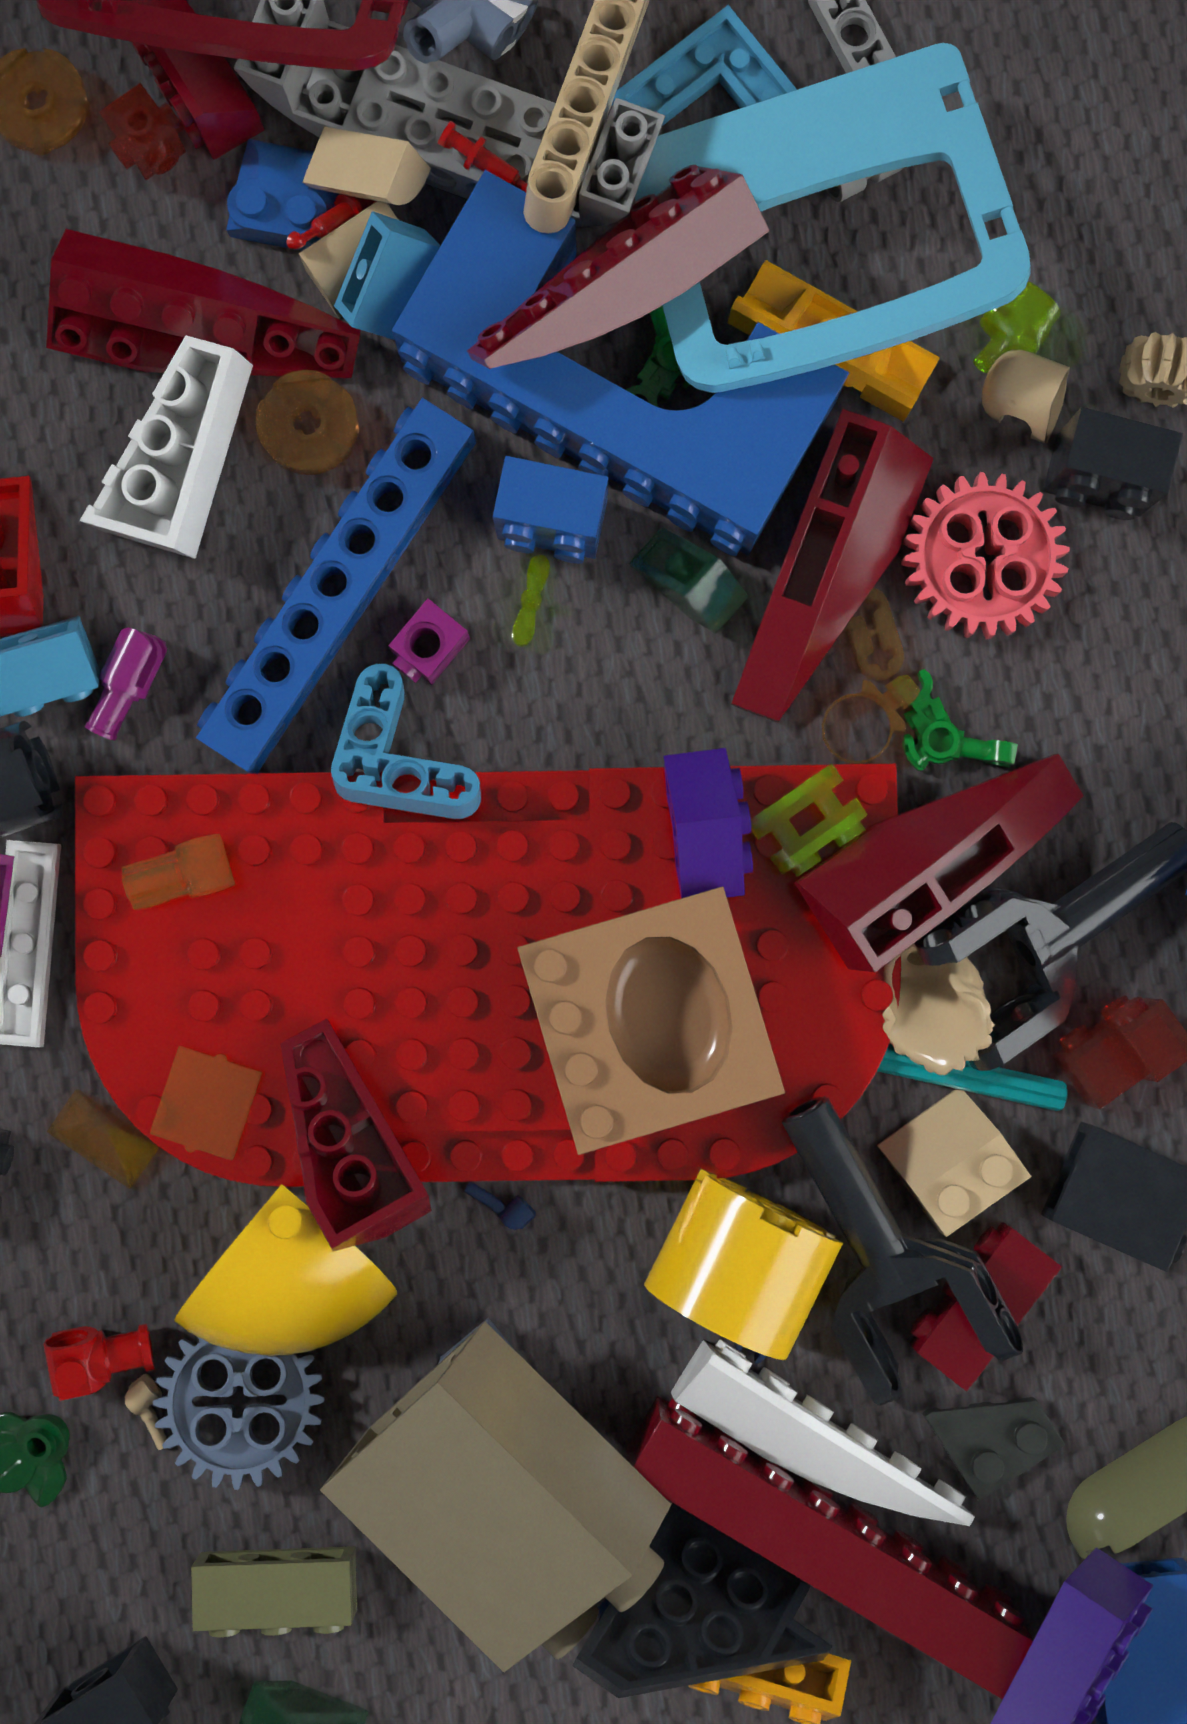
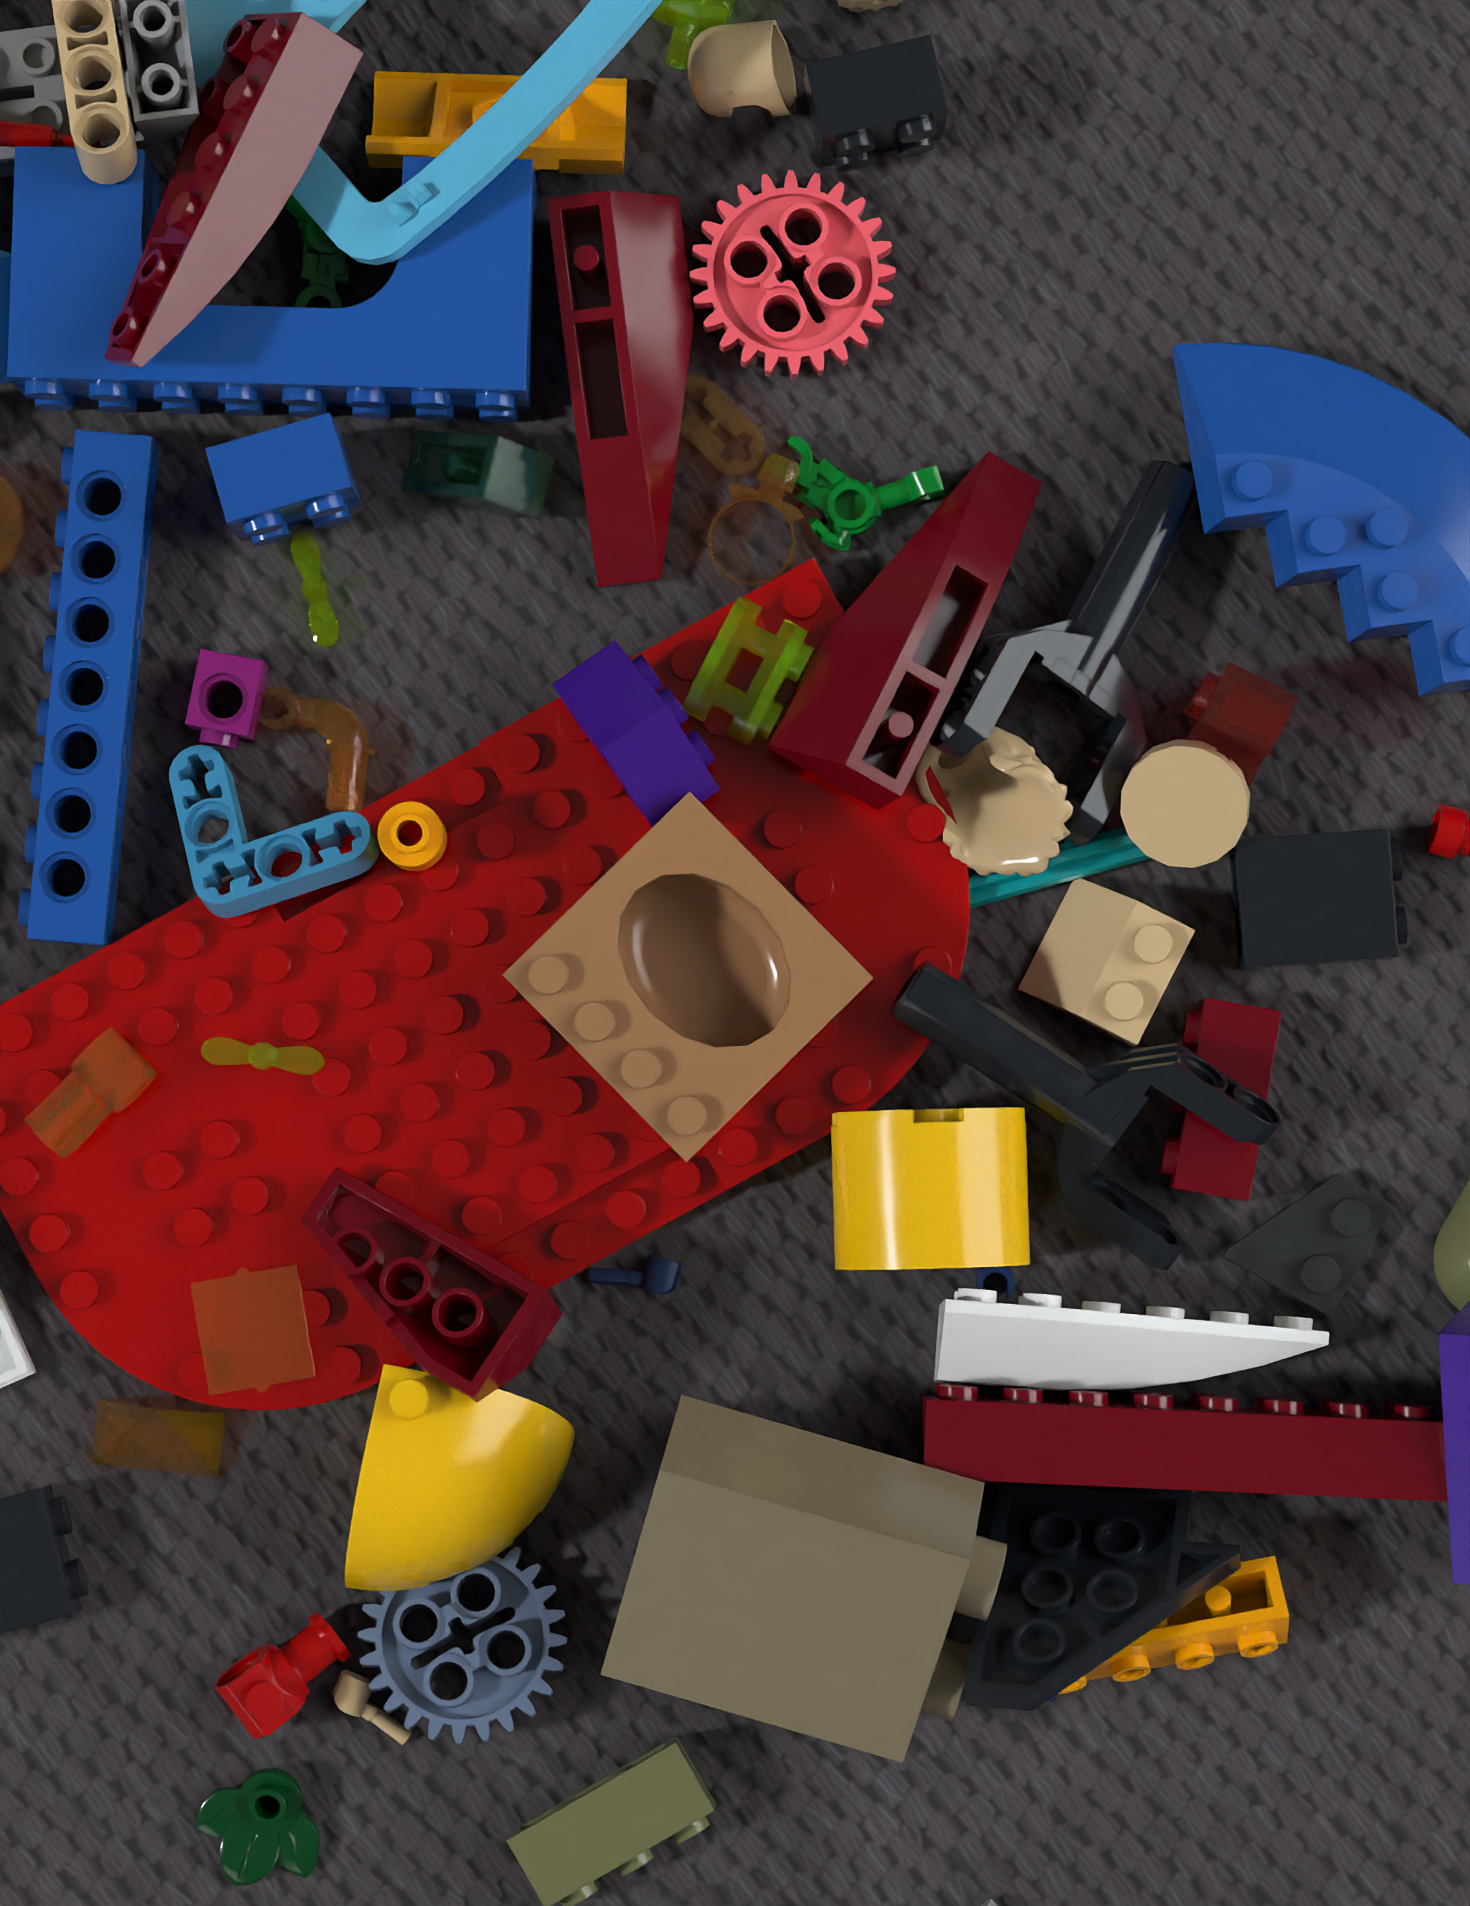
camera: 25 degrees left, 0 degrees up
(316, 910) = (262, 1055): none -> clear neon green piece
(496, 715) = (345, 741): none -> clear orange piece
(512, 827) = (427, 850): none -> light orange brick
(1071, 1081) = (1185, 803): none -> tan tile

